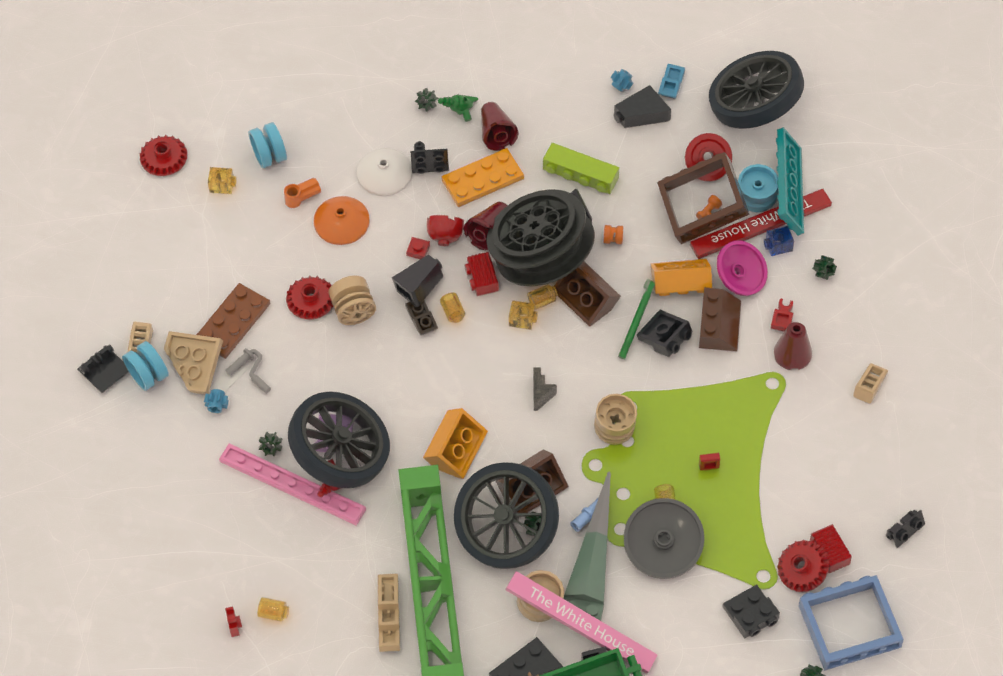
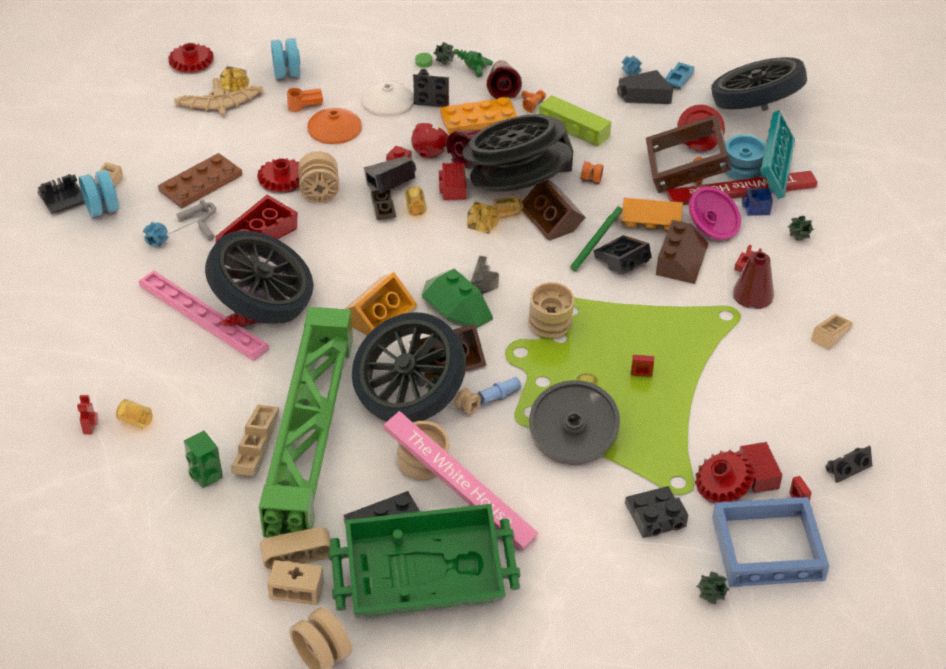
camera: 10 degrees right, 15 degrees down
(194, 359) = (150, 199): tan plate -> none
(214, 207) = (219, 98): none -> tan bar
(267, 447) = (187, 275): gear -> none
(313, 372) = (266, 217): none -> red wedge
(354, 647) = (203, 459): none -> green brick
(405, 109) = (423, 60): none -> bright green tile
(521, 418) = (456, 299): none -> green wedge
(530, 152) = (532, 99): none -> orange piece
(564, 533) = (467, 401): none -> tan wheel
(588, 576) = (483, 443): sand green plate -> none
(867, 566) = (799, 488): none -> red tile

